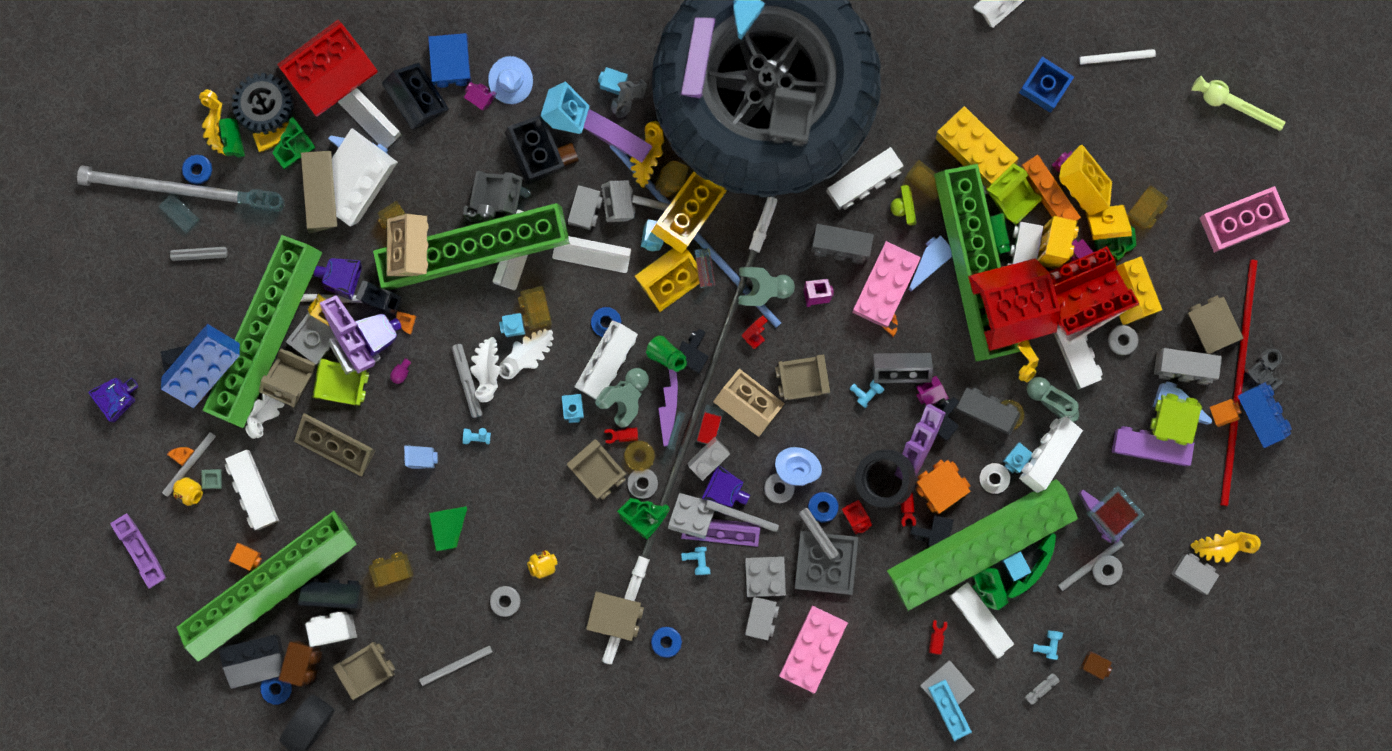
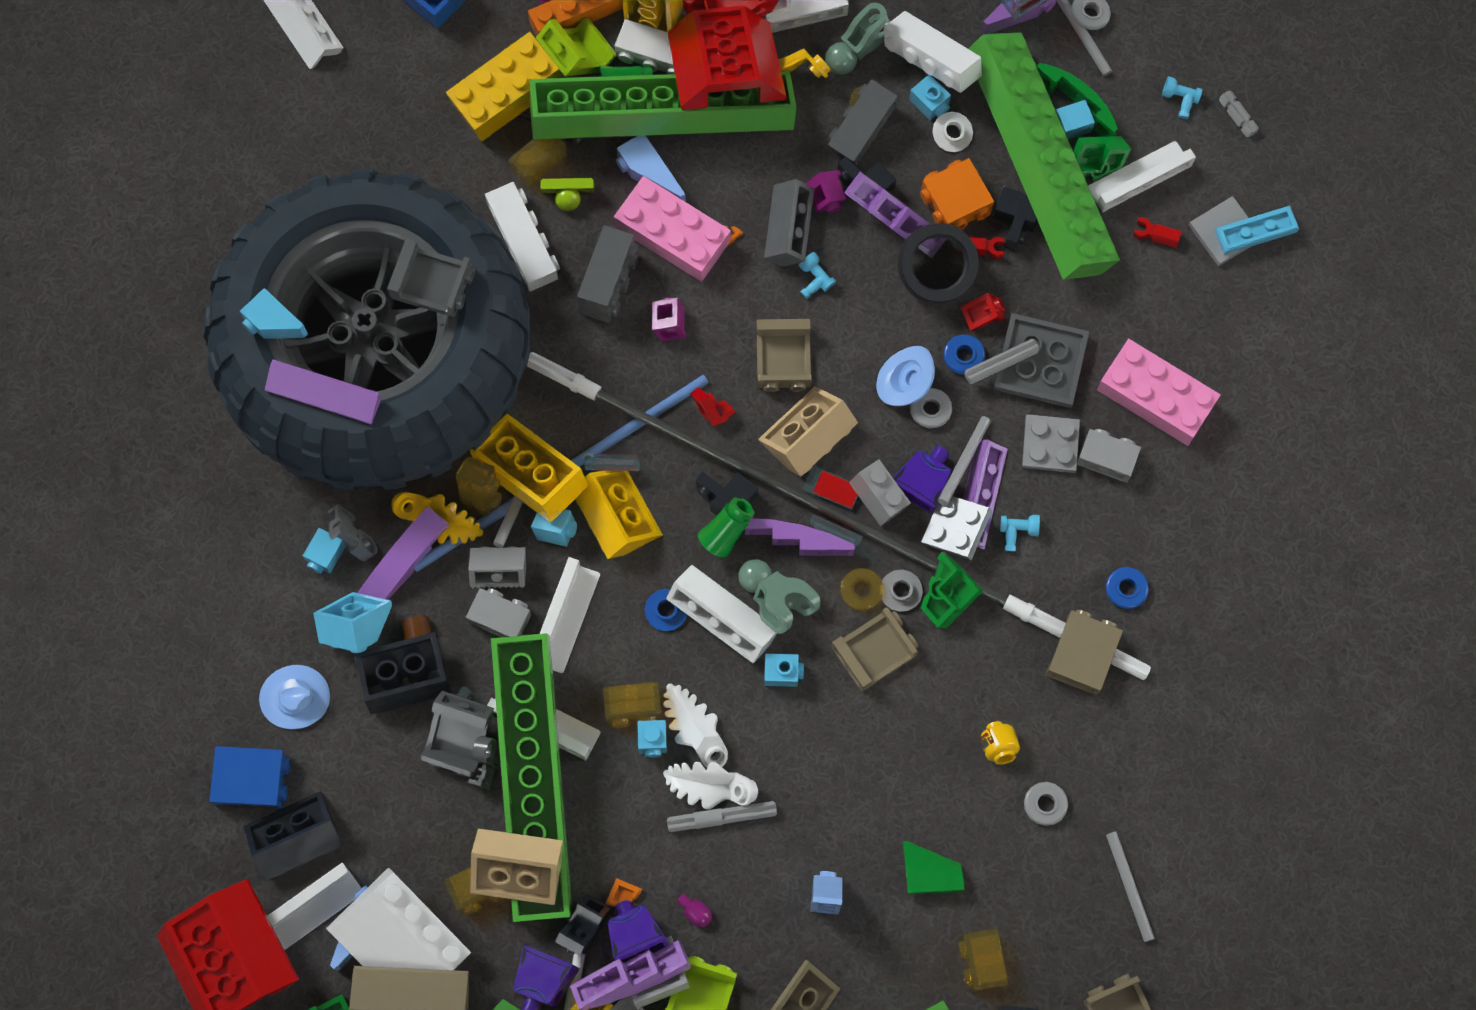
camera: 80 degrees left, 10 degrees down
(479, 95) = (309, 741): magenta brick -> none
(482, 436) = (806, 801): medium azure piece -> none
(623, 435) = (830, 607): red bar -> none
(765, 286) = (651, 384): sand green piece -> none
(1096, 665) = (1215, 42): reddish brown brick -> none

